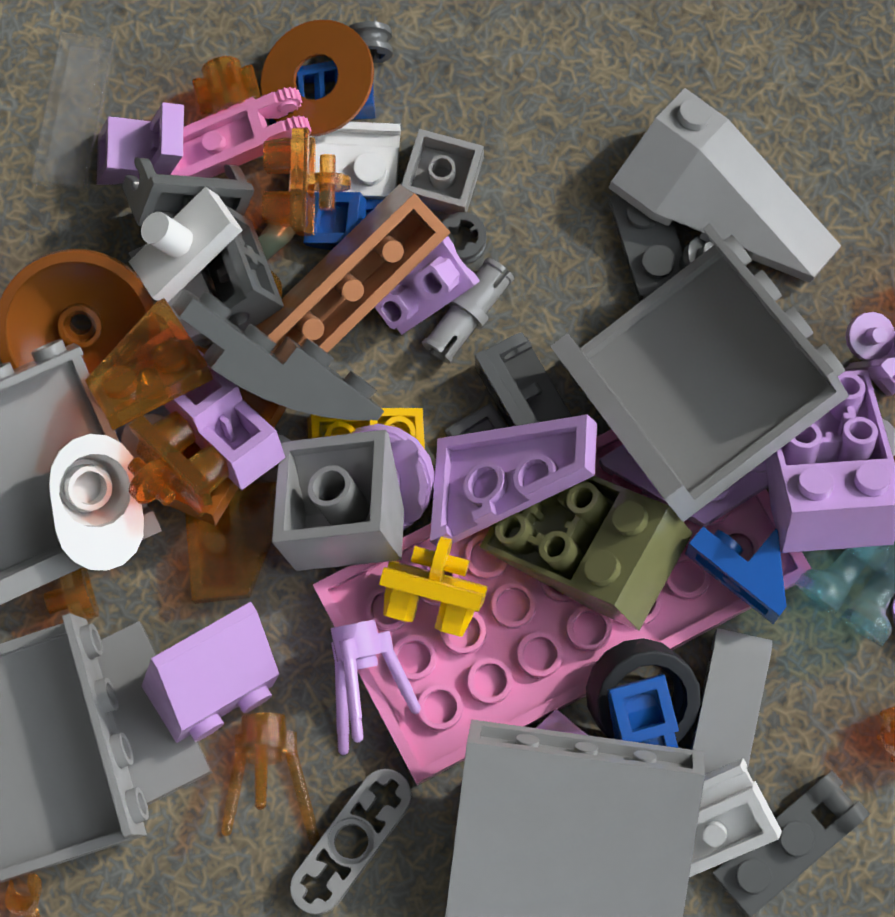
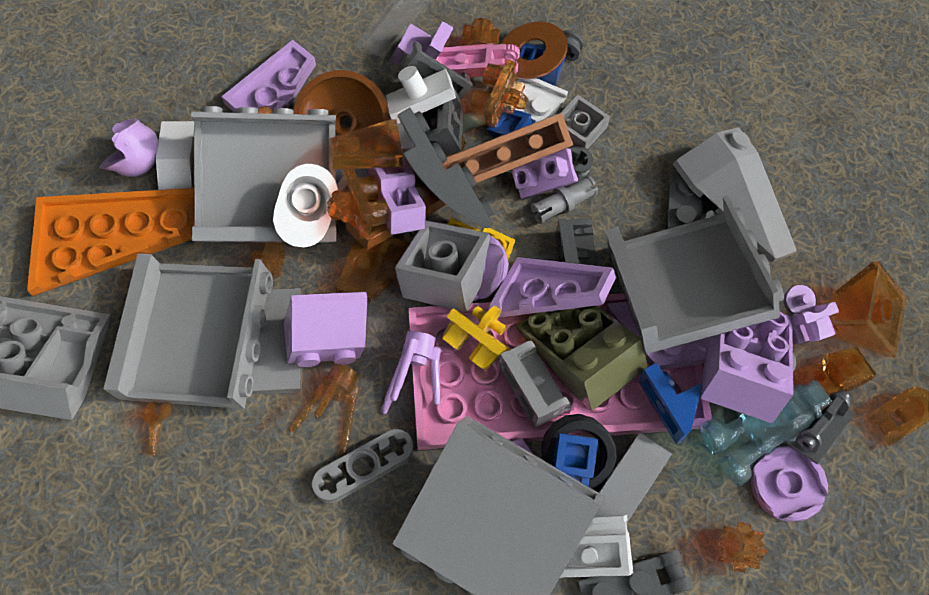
camera: 15 degrees right, 10 degrees down
(541, 625) = (532, 384): none -> light grey hinge

